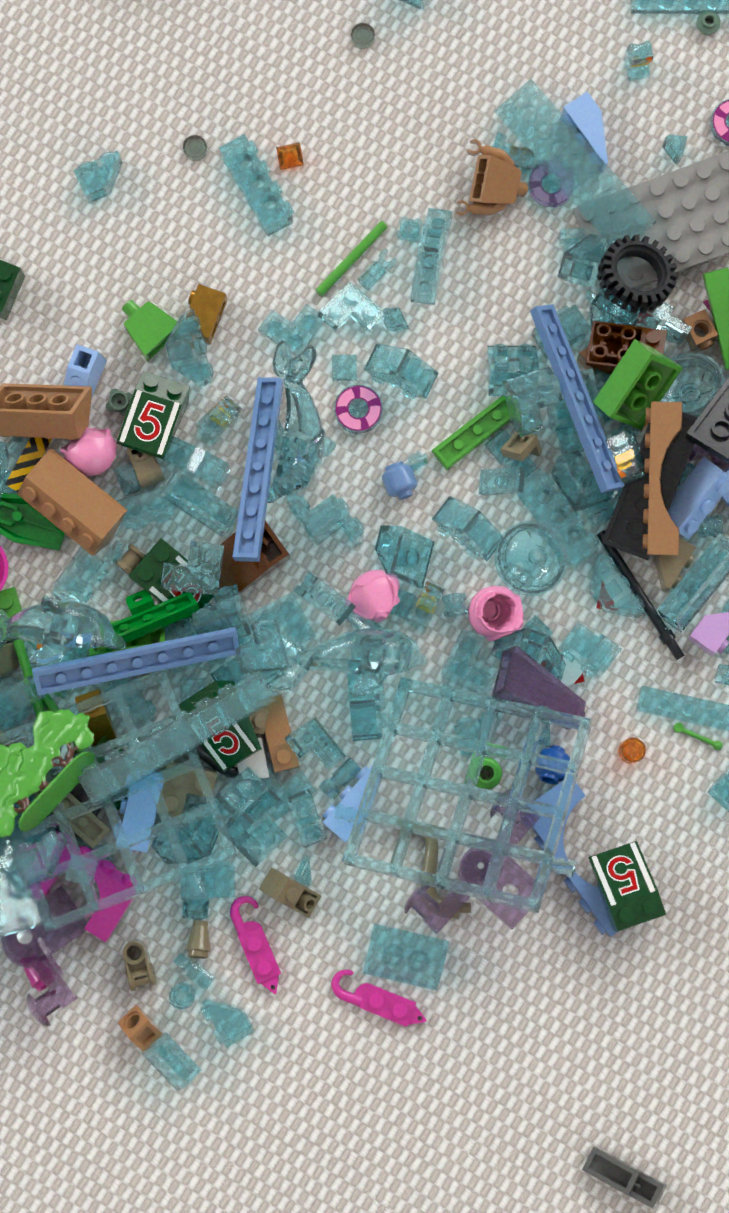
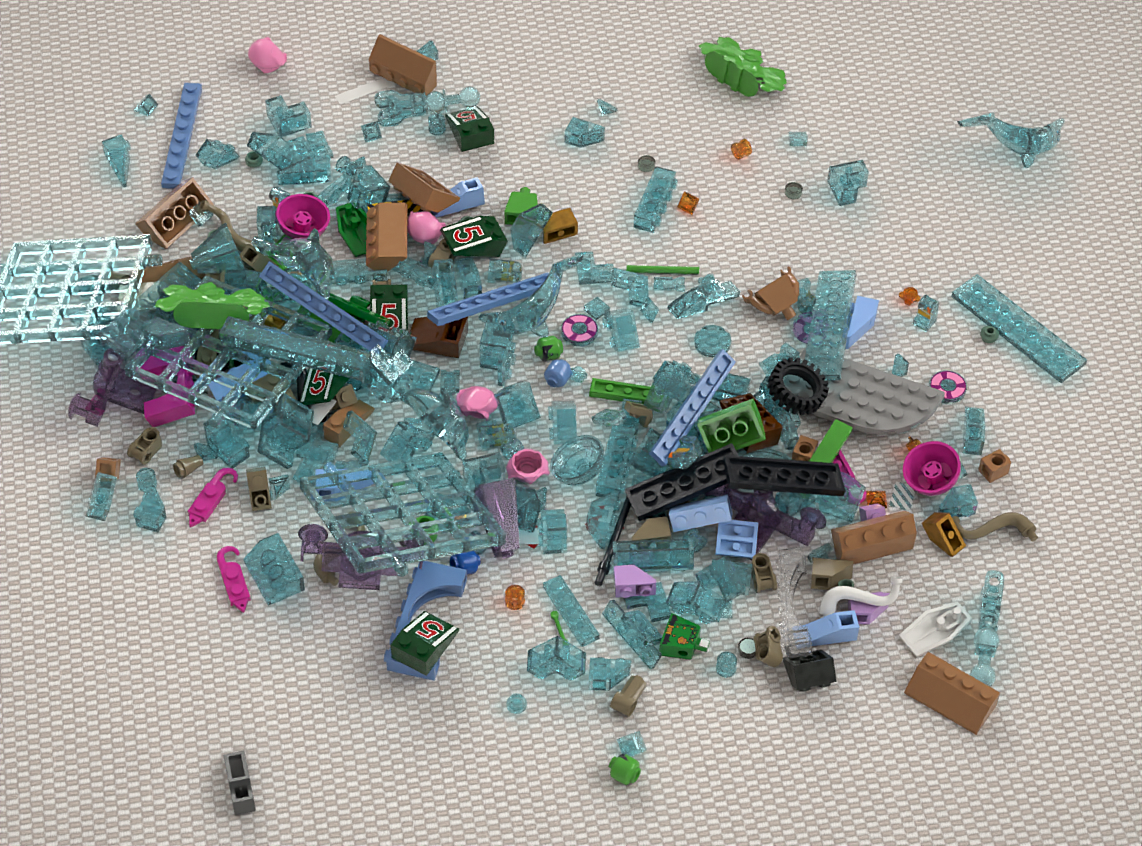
camera: 50 degrees right, 30 degrees down
(81, 119) = (606, 108): none -> clear light blue slope
(81, 870) = (176, 358): clear light blue tile -> none
(195, 971) = (166, 477): clear light blue bar -> none
(200, 574) = (401, 313): clear light blue brick -> none
(265, 37) = (741, 149): none -> clear orange wheel
(359, 461) = (548, 348): none -> bright green head
(484, 292) = (711, 340): none -> clear light blue tile
(599, 46) = (909, 295): none -> clear orange plate
(665, 424) = (659, 501): medium nougat arch -> none

